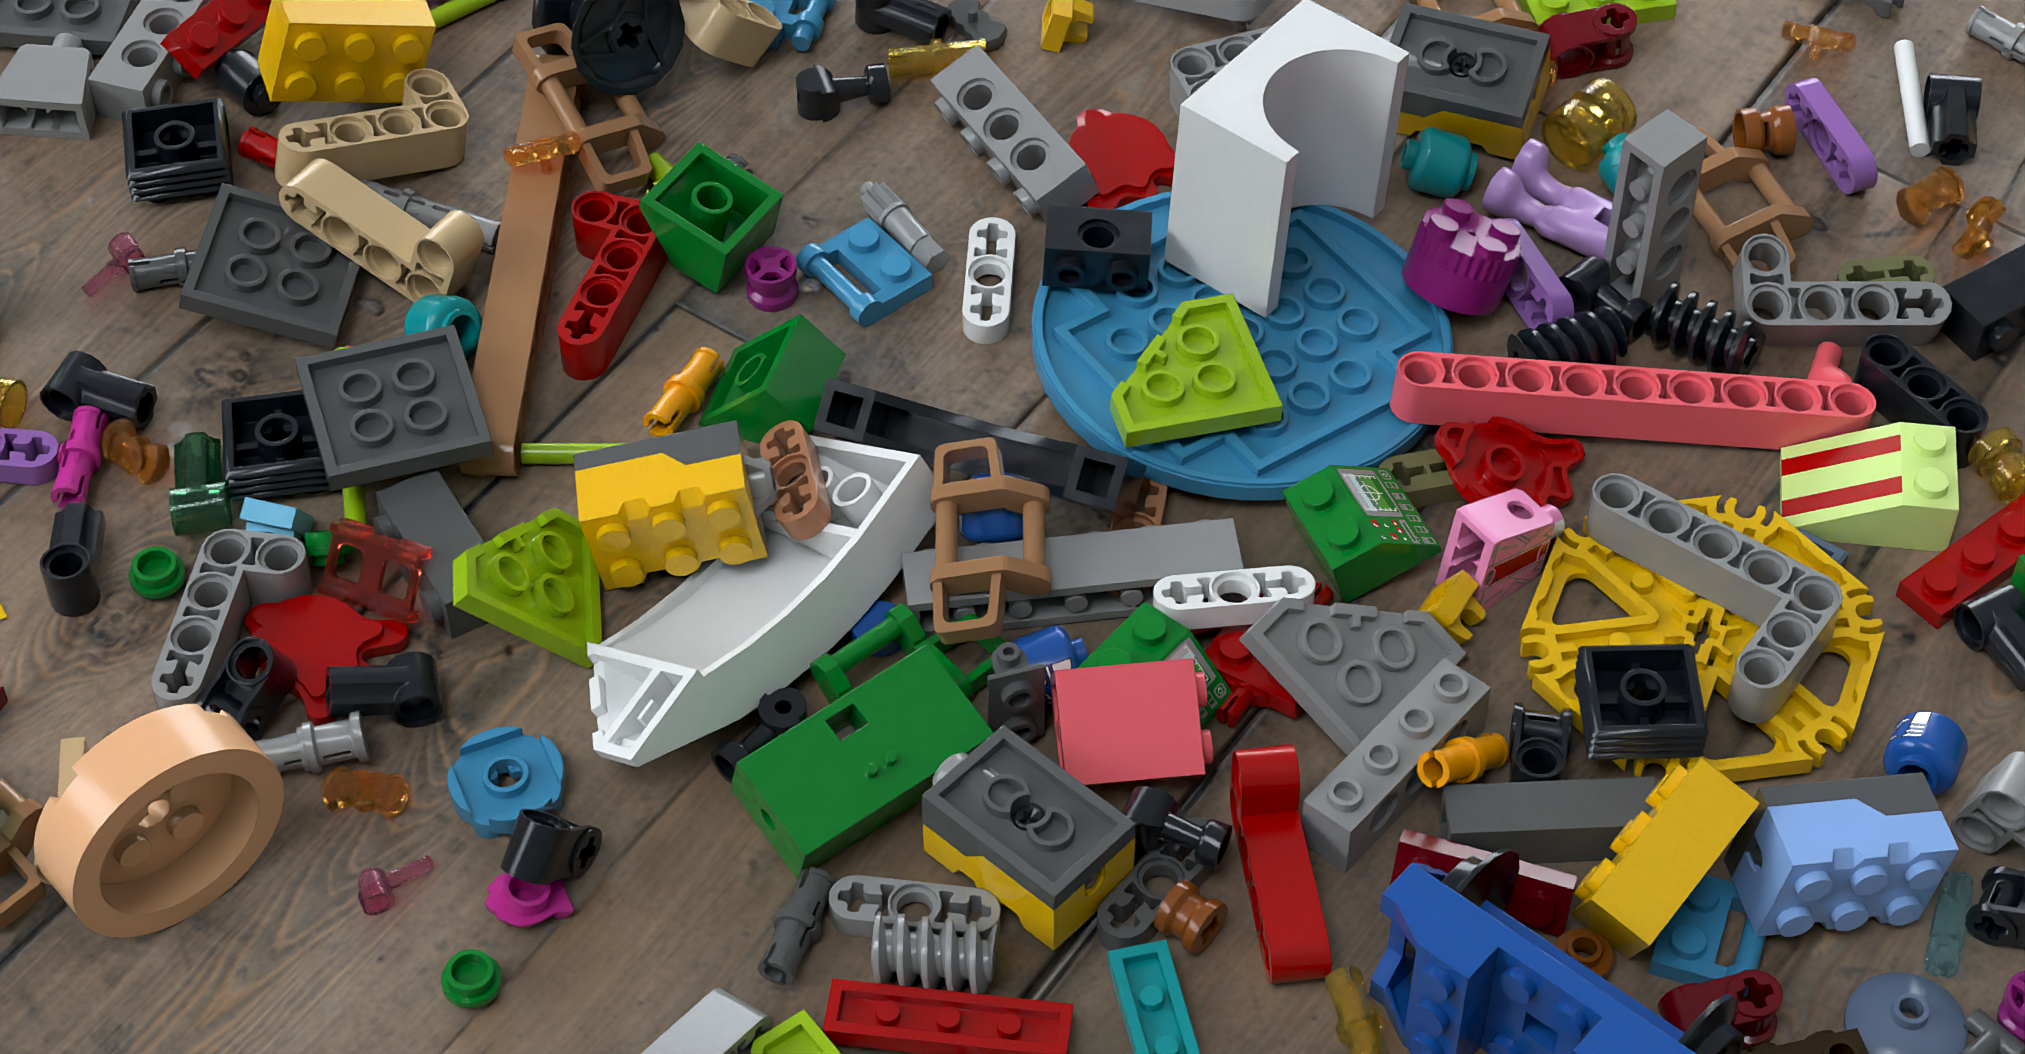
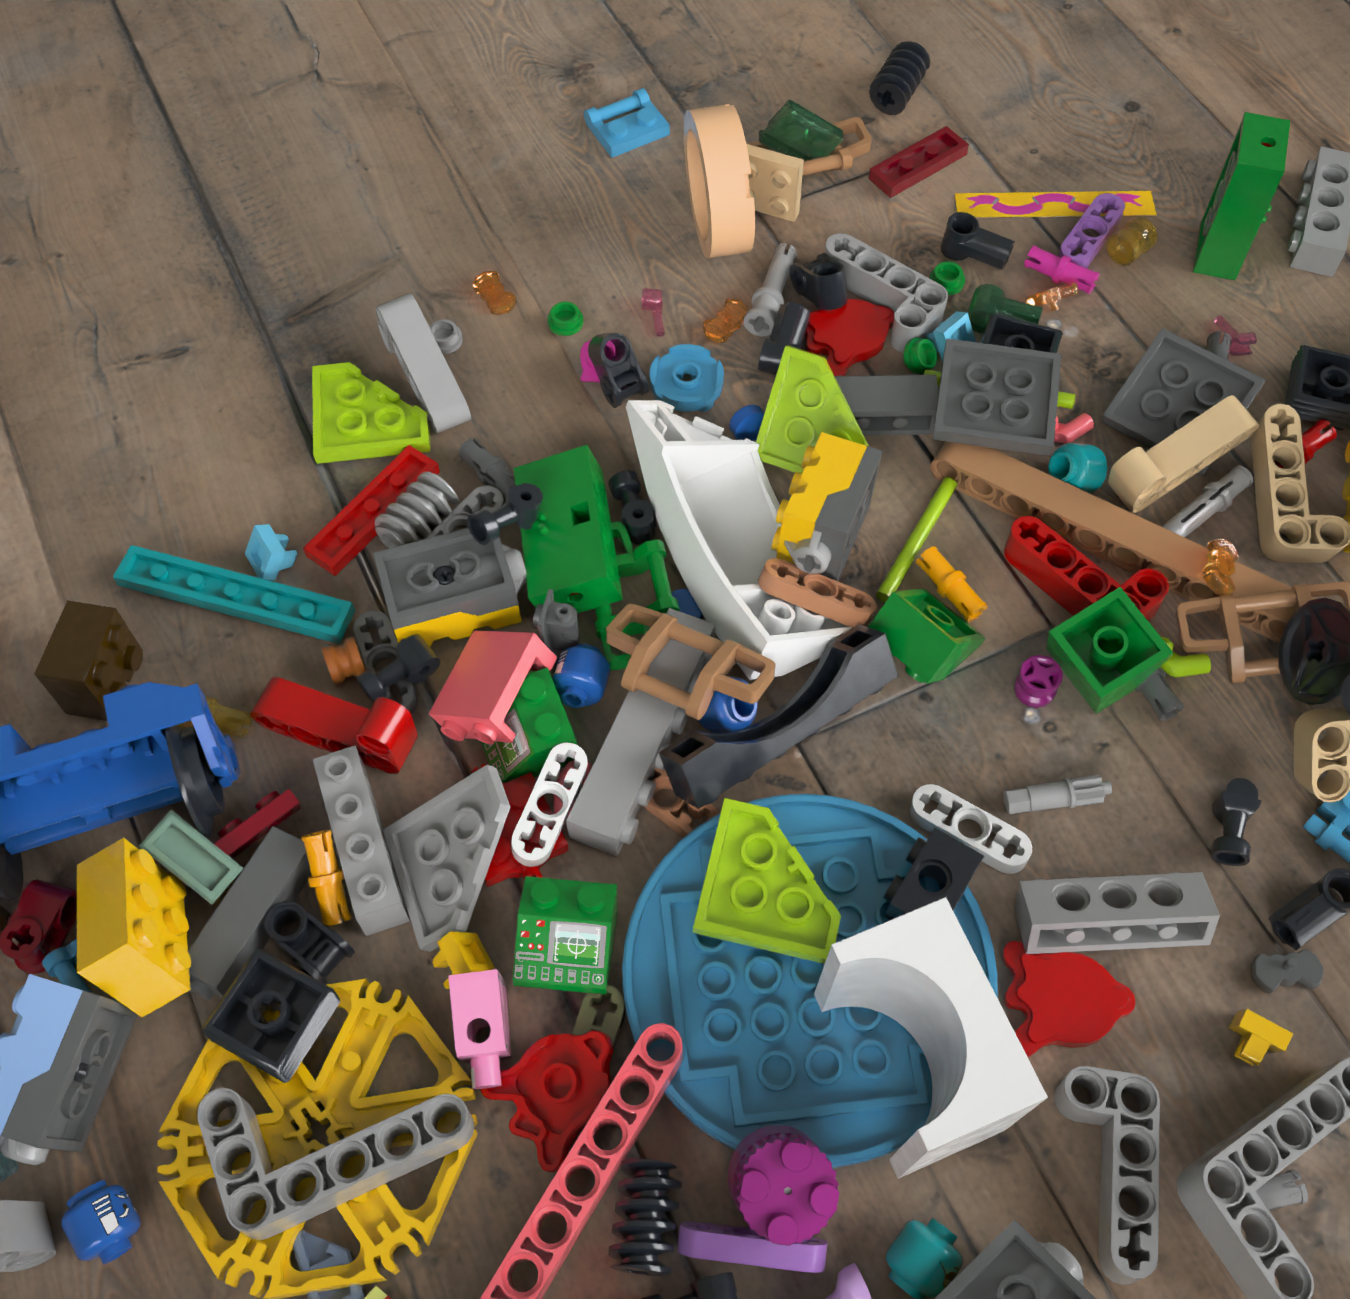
camera: 120 degrees right, 10 degrees up
(86, 382) = (1118, 285): black piece -> none
(376, 553) = (882, 356): clear red piece -> none
(552, 675) = (747, 422): none -> blue tile
(875, 262) = (1021, 762): dark azure plate -> none
(890, 764) = (520, 508): none -> black leg
(927, 58) = (1248, 914): clear yellow pin -> none
(1549, 871) = (191, 857): none -> sand green tile

